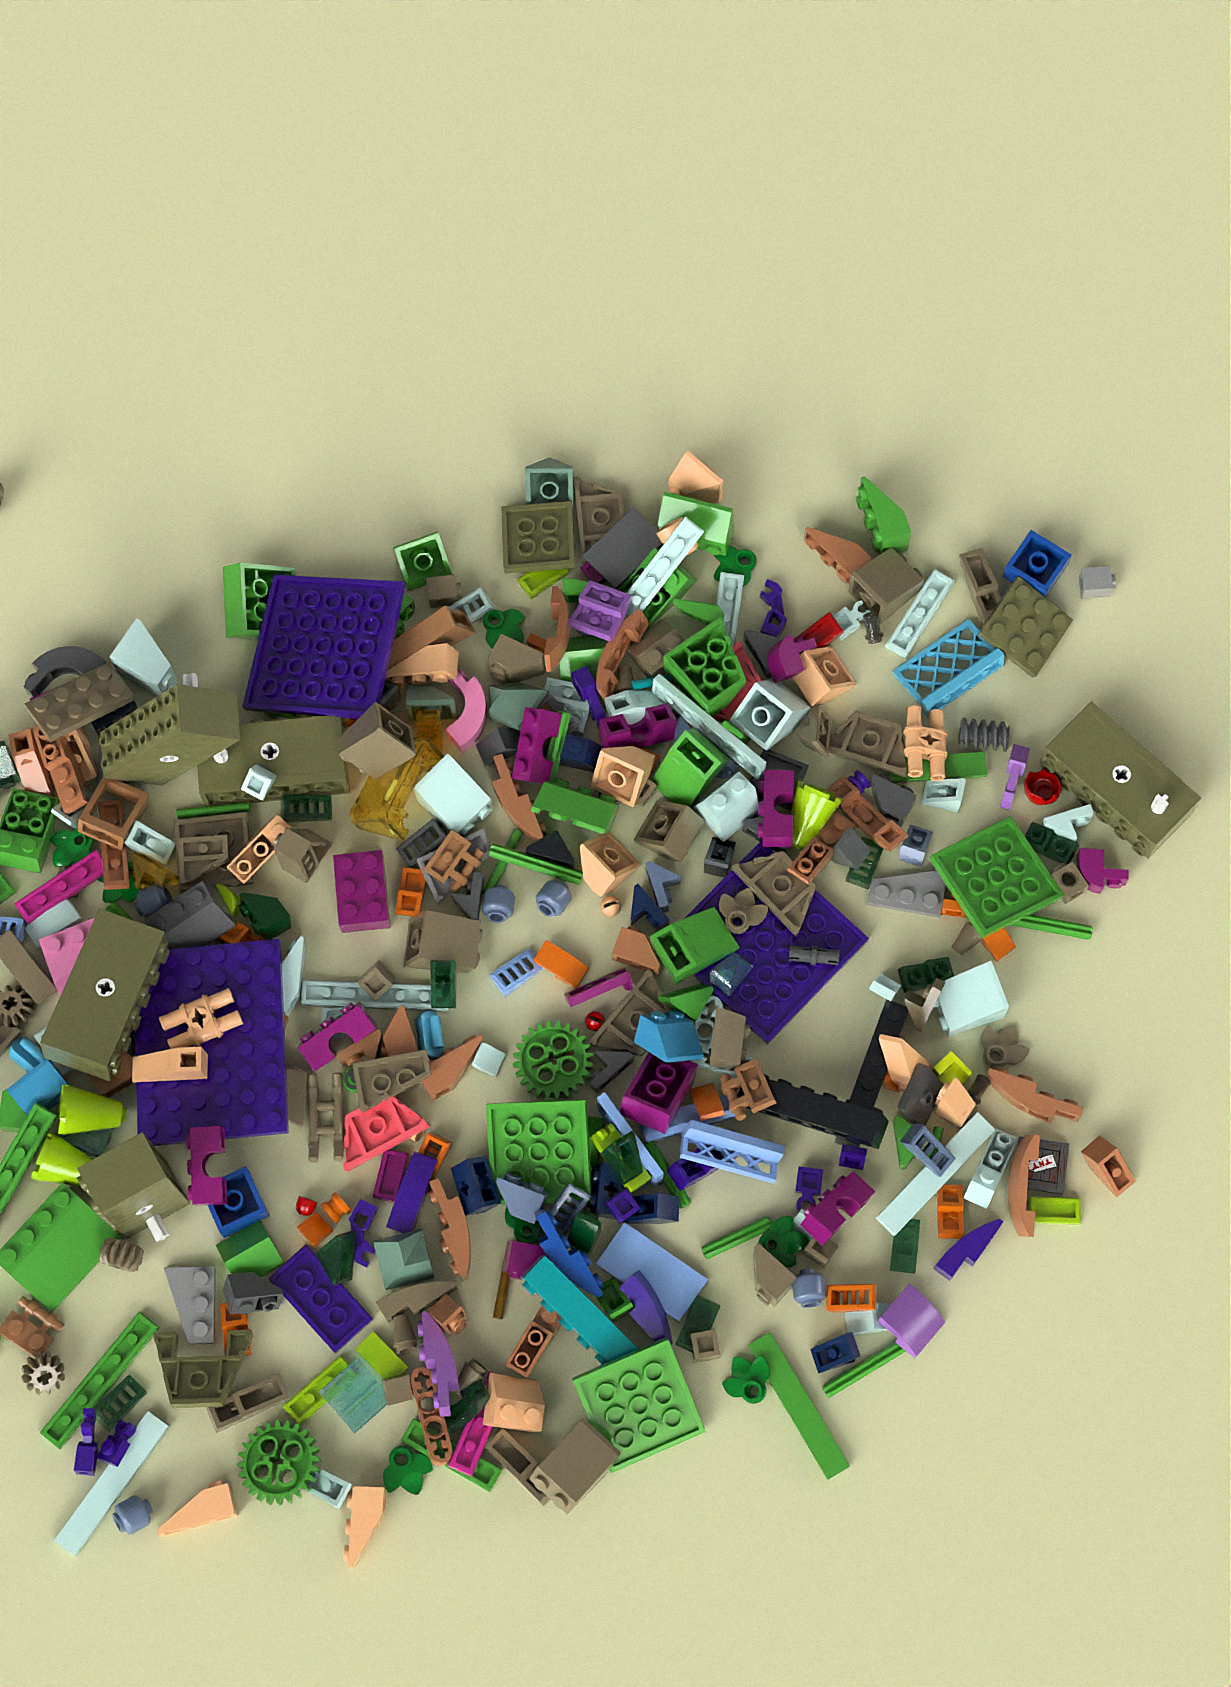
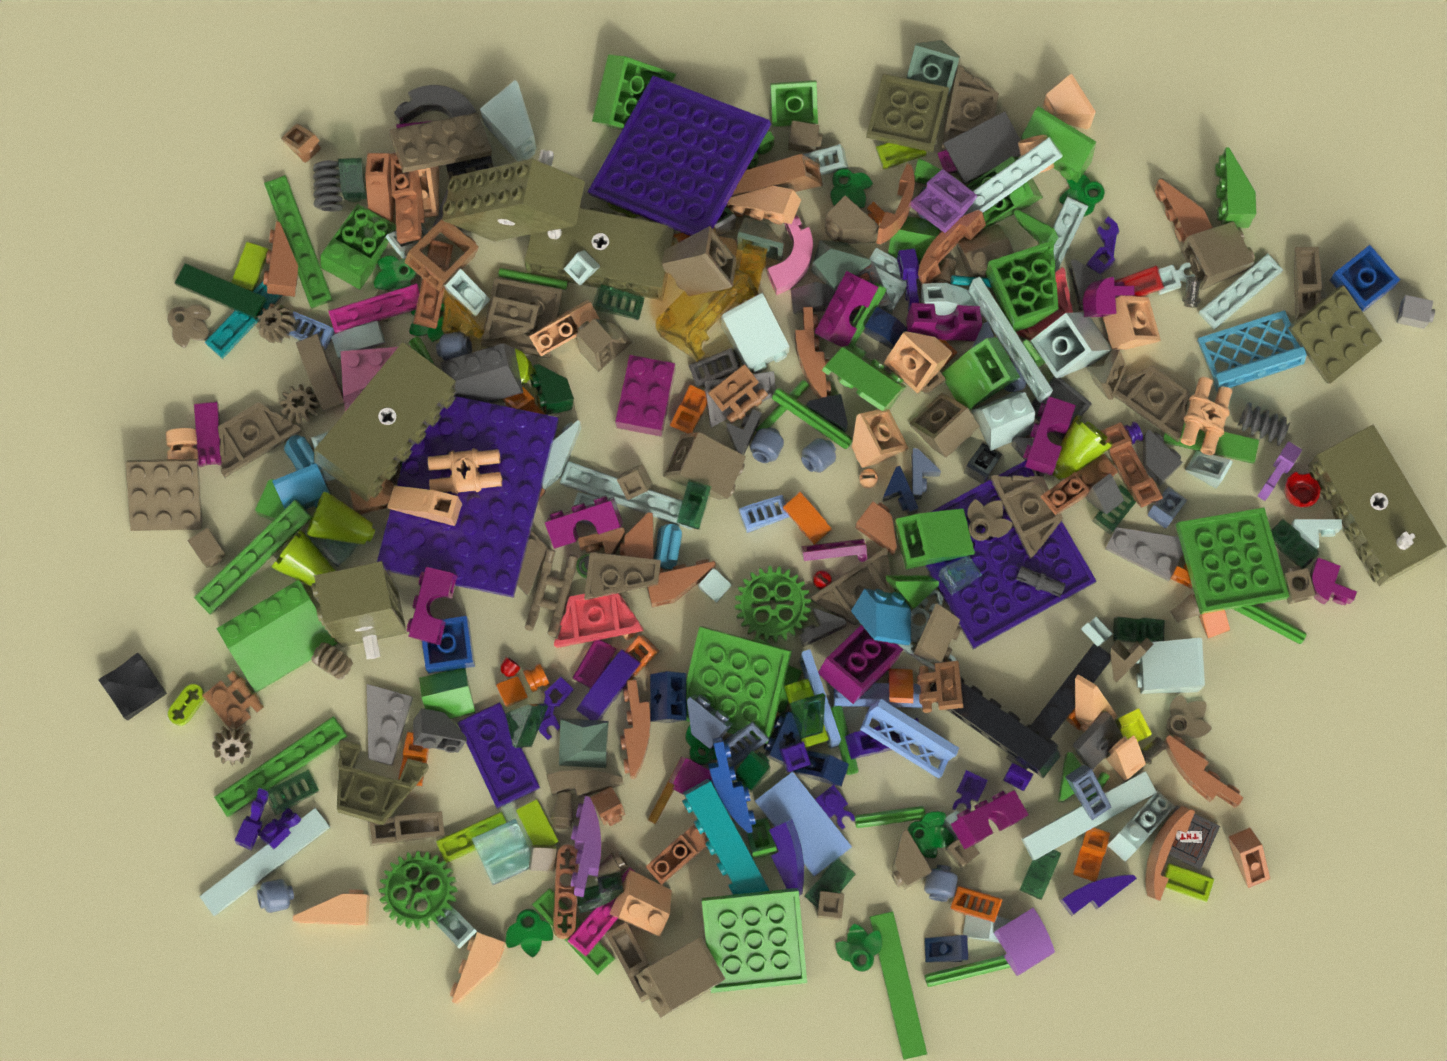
camera: 15 degrees right, 5 degrees up
(675, 1242) = (833, 803): none -> dark purple plate

